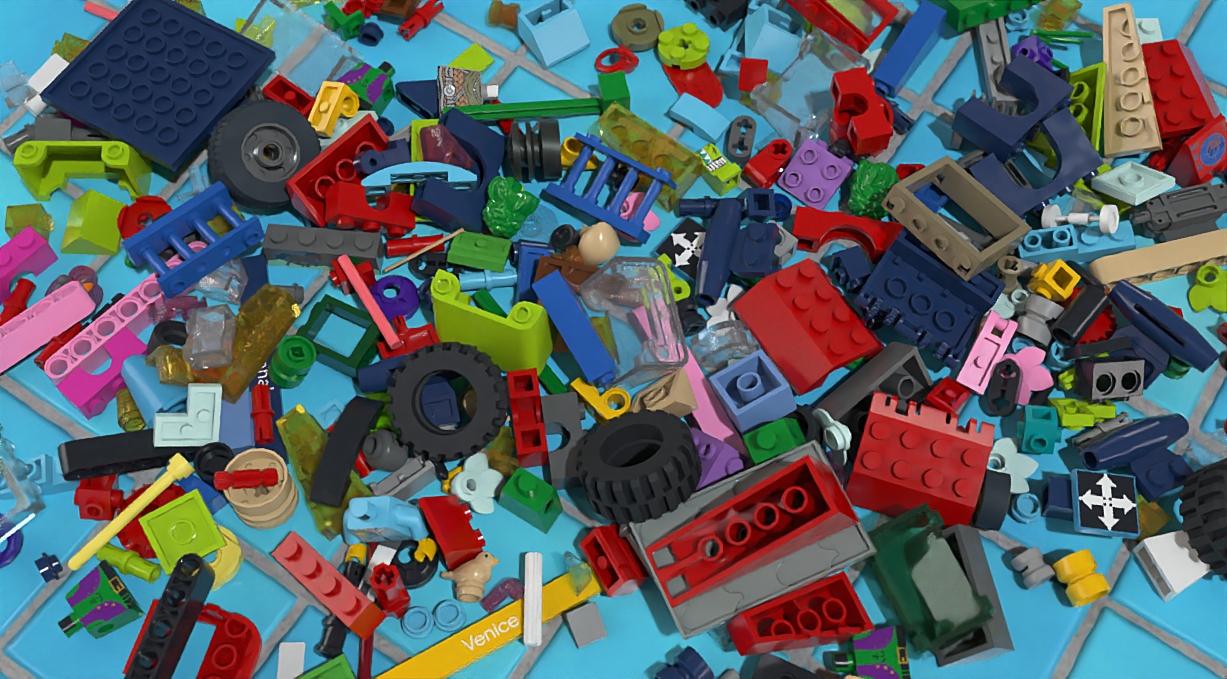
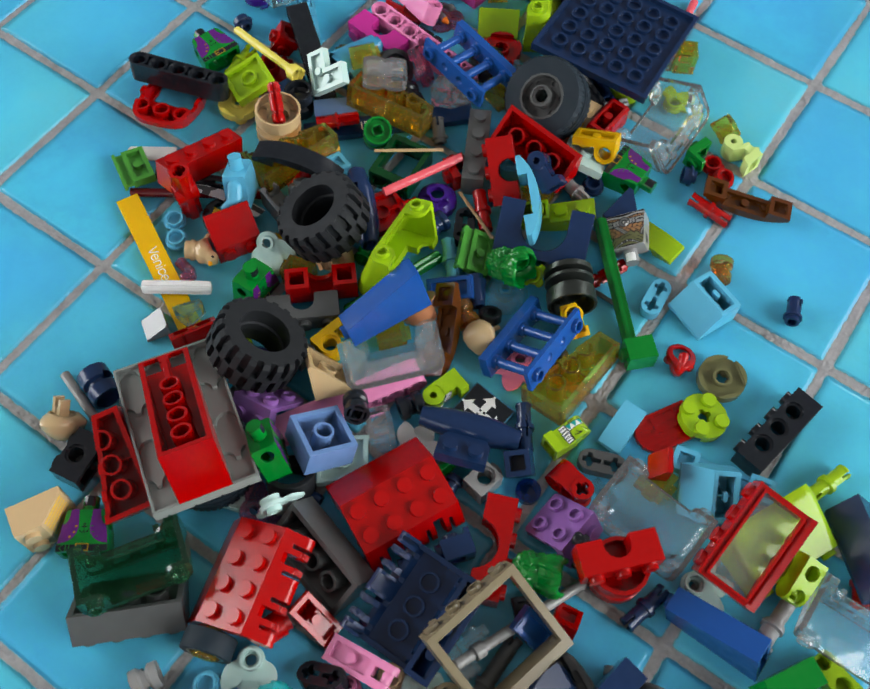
camera: 90 degrees right, 0 degrees up
(325, 327) = (411, 150): none -> tan piece
(442, 147) = (560, 214): clear pink slope -> none
(538, 79) = (658, 300): none -> medium azure beam
(708, 358) = (355, 406): none -> black wheel

